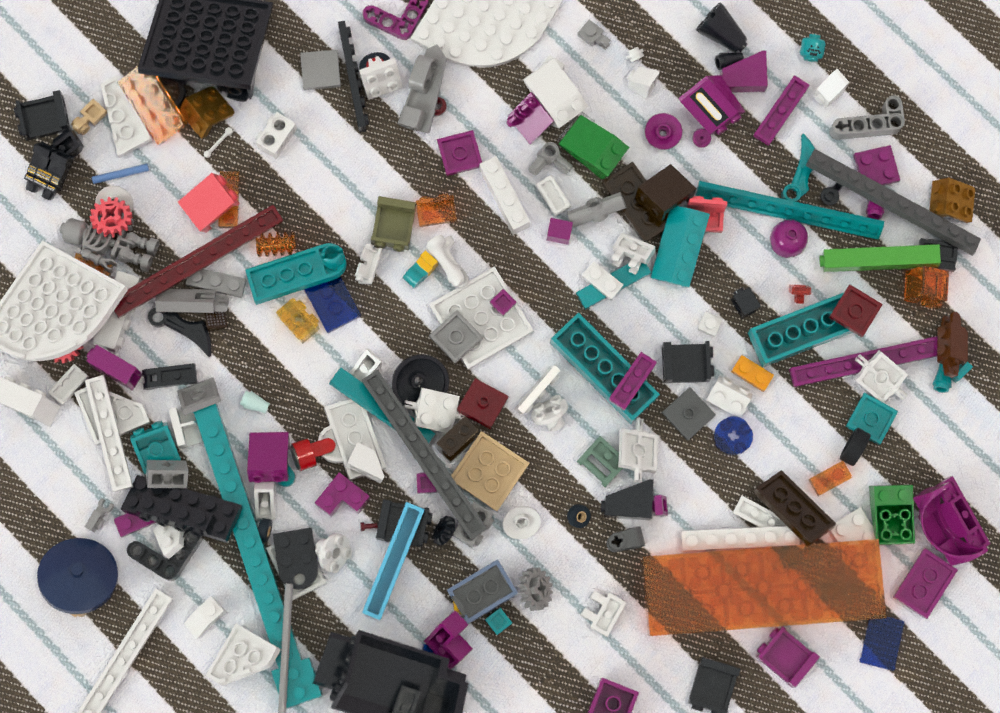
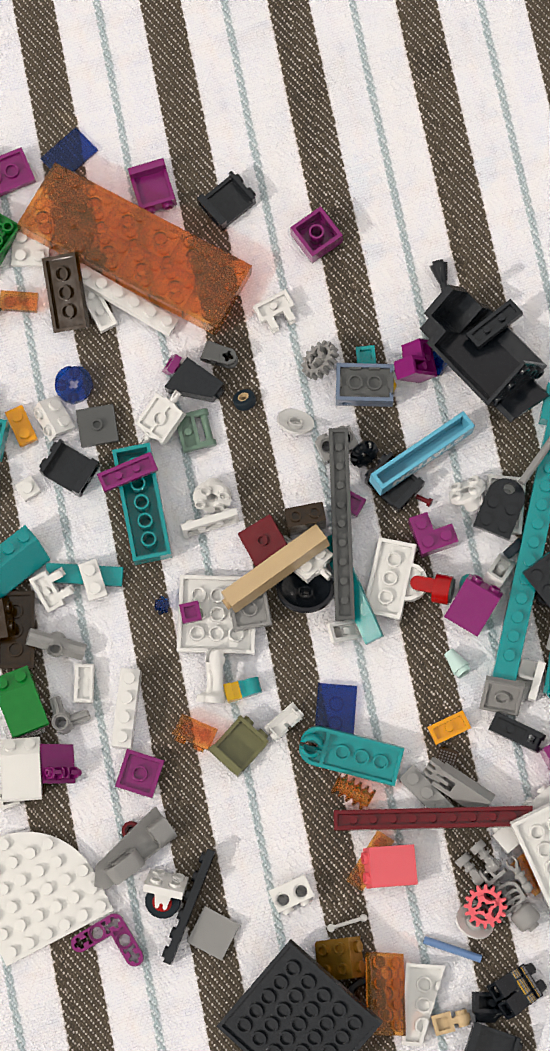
camera: 135 degrees left, 0 degrees up
(193, 330) = (470, 759): black piece -> none
(228, 345) = (449, 727): none -> light orange plate
(301, 330) = (378, 700): clear yellow brick -> none
(365, 462) = (394, 548): white slope -> none
(454, 378) = (274, 569): none -> tan brick
(489, 471) = (294, 479): tan plate -> none
(532, 296) = (161, 605): none -> clear blue plate
(559, 231) = (100, 647): magenta panel -> none

